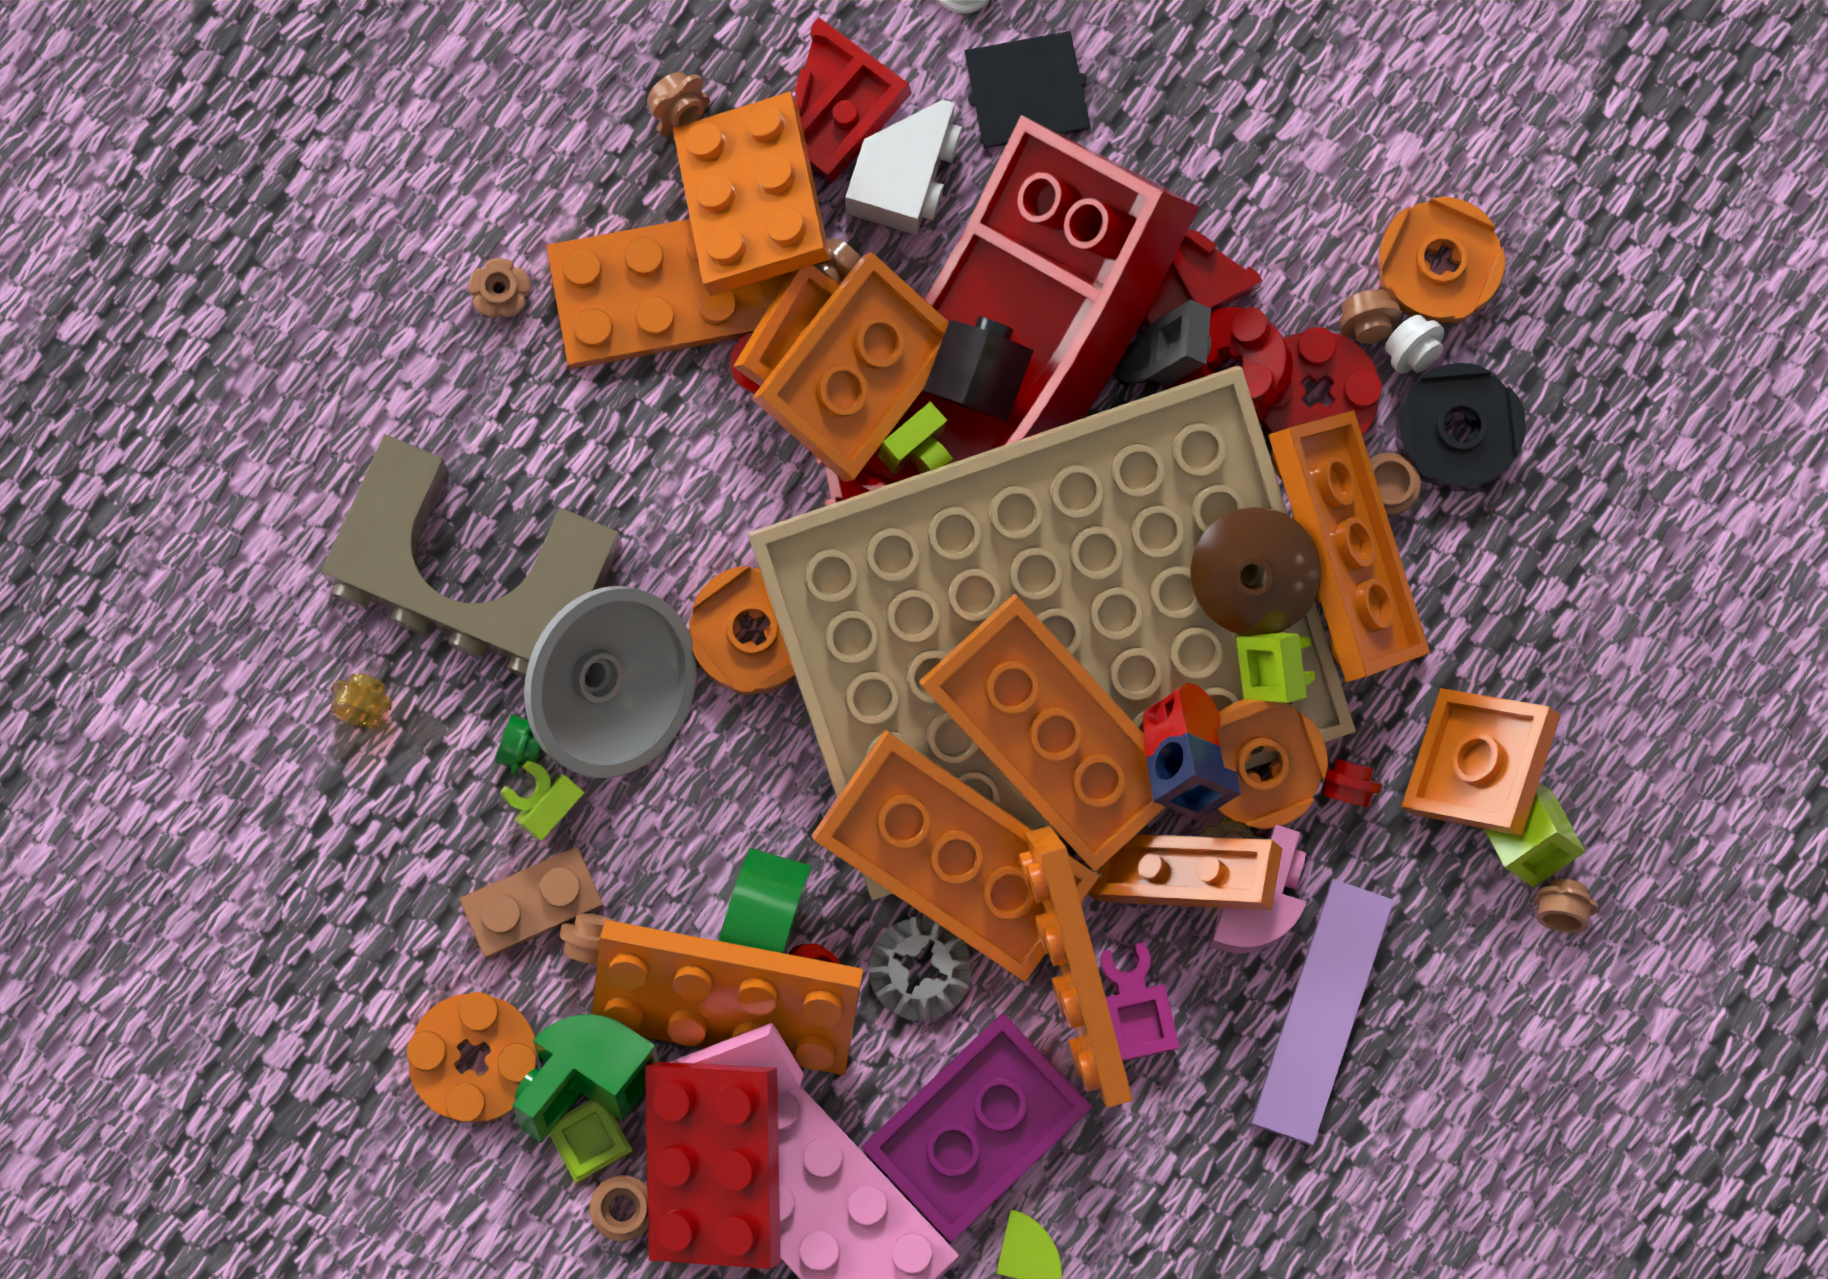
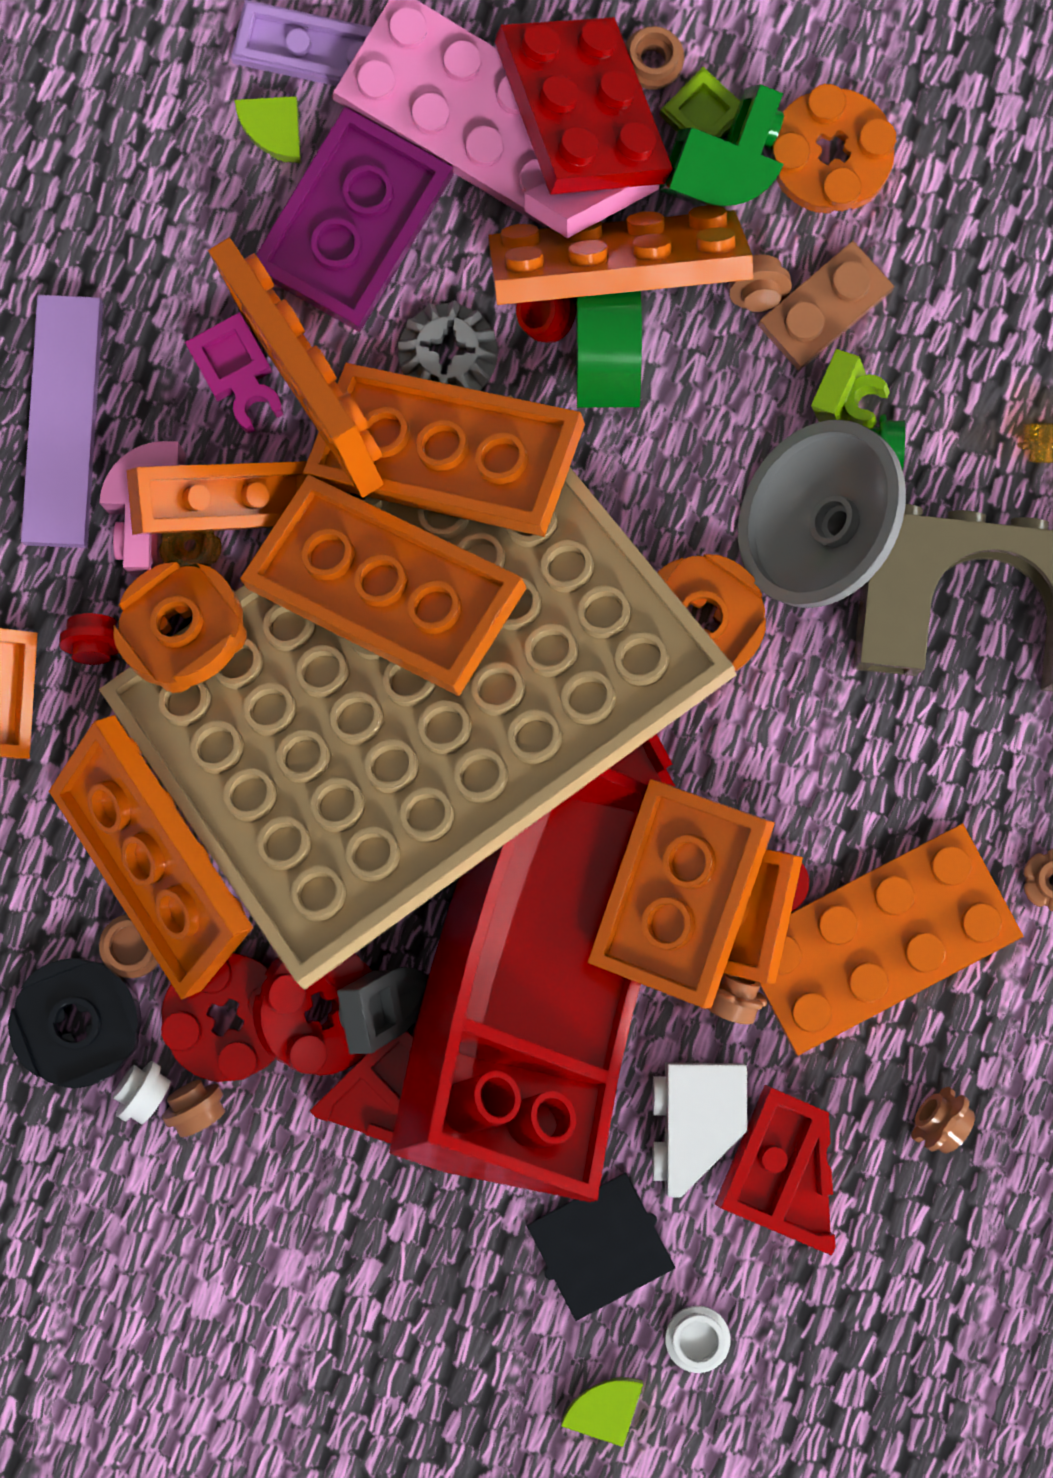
camera: 165 degrees right, 5 degrees up
(750, 194) = (841, 1040): orange plate -> none
(917, 443) = (601, 840): lime tile -> none
(979, 367) = (561, 928): black brick -> none
(1186, 754) = (250, 598): dark blue leg -> none
(1263, 539) = (233, 817): reddish brown dish -> none
(1273, 667) = (188, 710): lime tile -> none
(1427, 228) = (108, 1211): orange plate -> none

